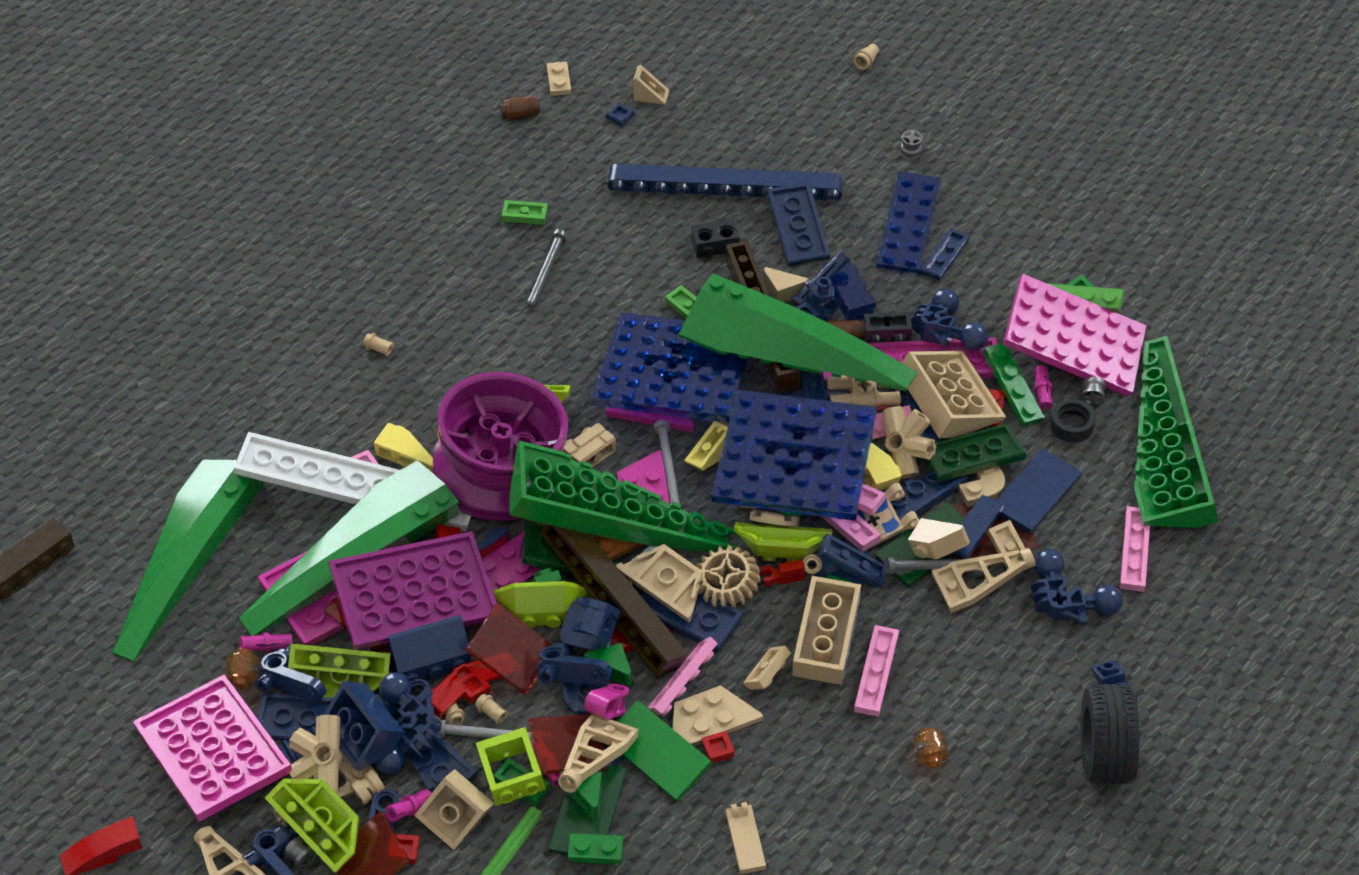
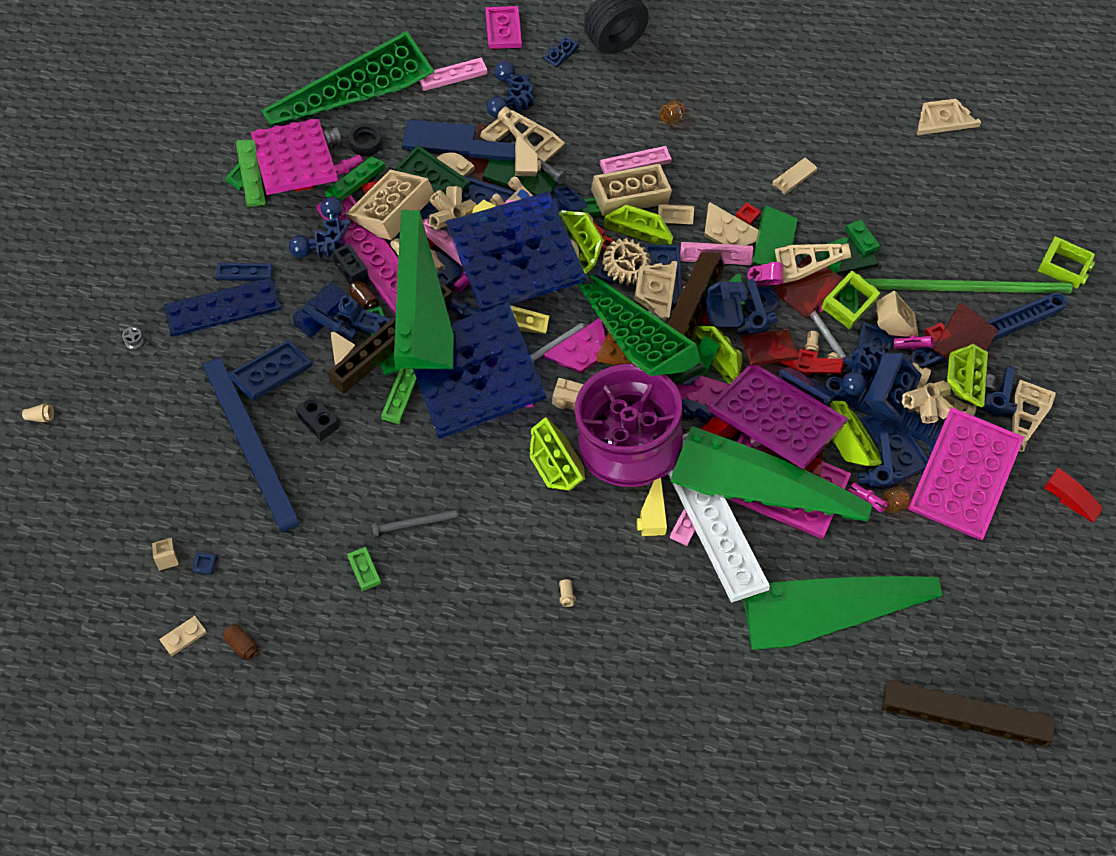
camera: 125 degrees left, 10 degrees up
(769, 621) = (639, 225): none -> lime wedge
(1191, 638) = (503, 27): none -> dark pink plate

